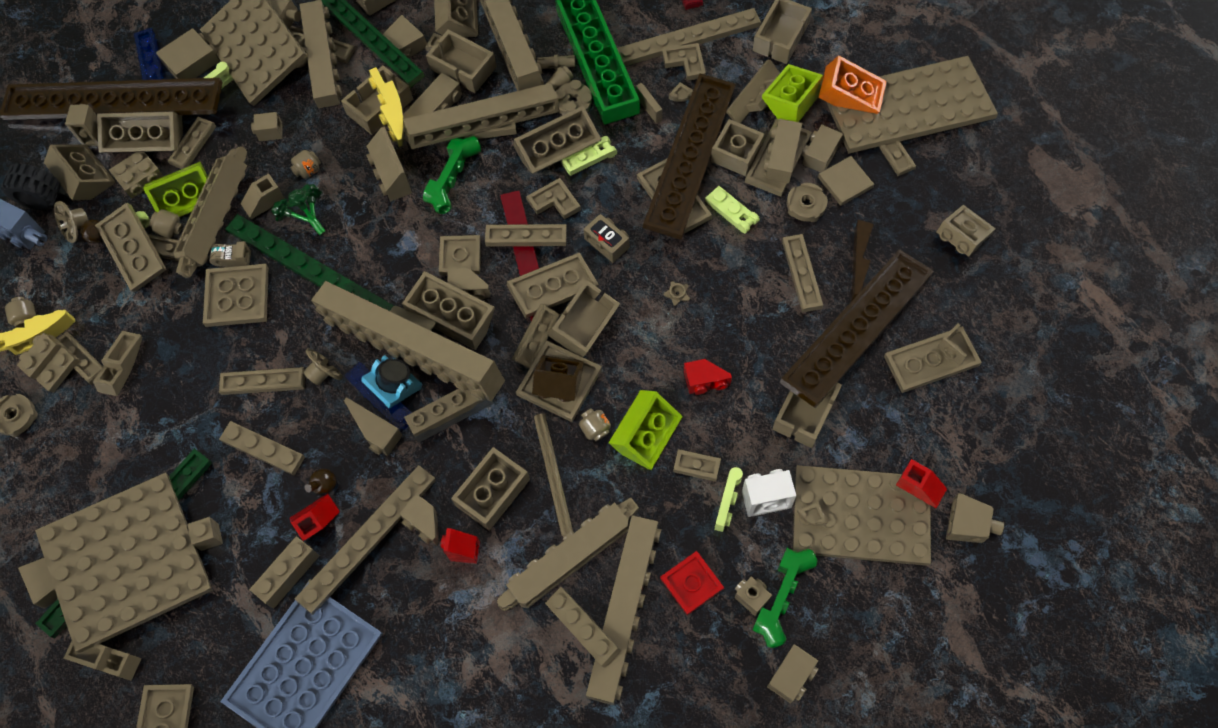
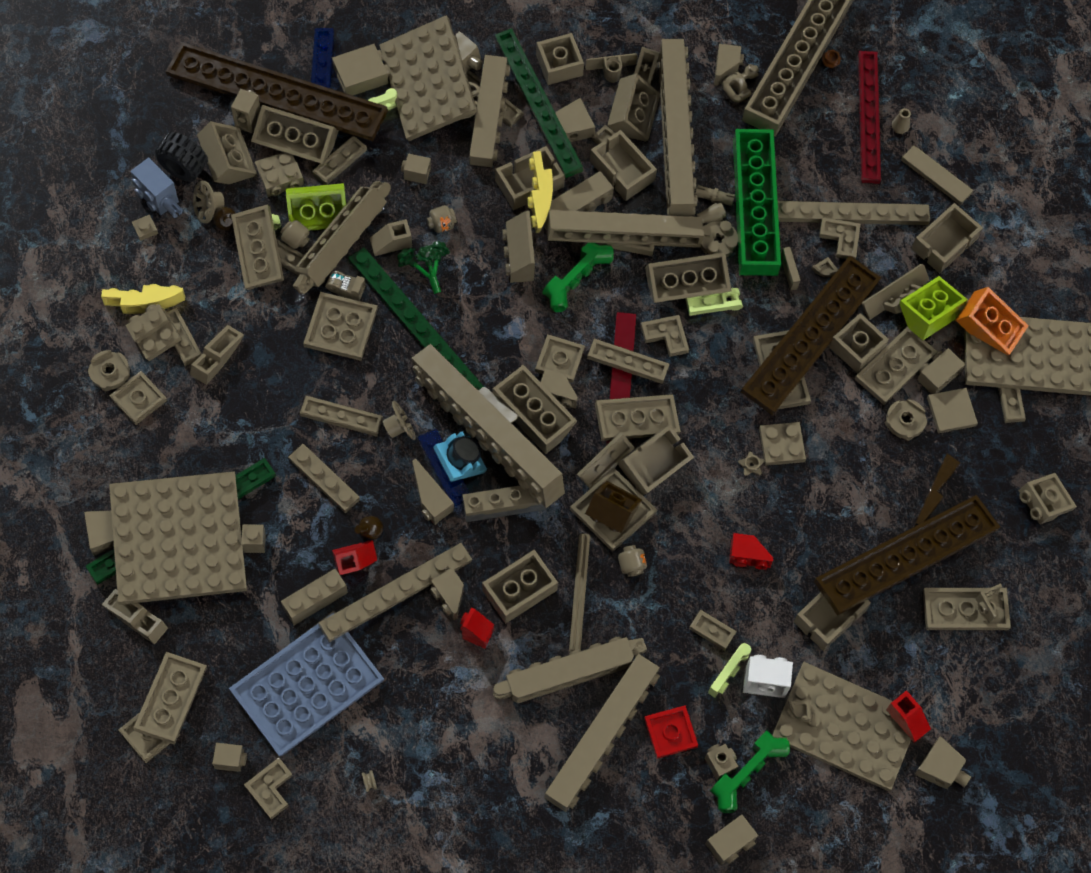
camera: 10 degrees right, 0 degrees up
(16, 265) = (145, 227): none -> dark tan plate
(18, 311) = (139, 275): dark tan head -> none
(50, 432) = (138, 397): none -> dark tan tile
(583, 627) = (561, 735): dark tan plate -> none
(607, 238) = (703, 389): dark tan brick -> none
(645, 429) = (677, 581): lime slope -> none
(699, 264) = (782, 443): none -> dark tan plate
(731, 209) = (832, 401): yellowish green plate -> none
(783, 150) = (900, 361): dark tan brick -> none
(802, 273) = (876, 486): dark tan plate -> none

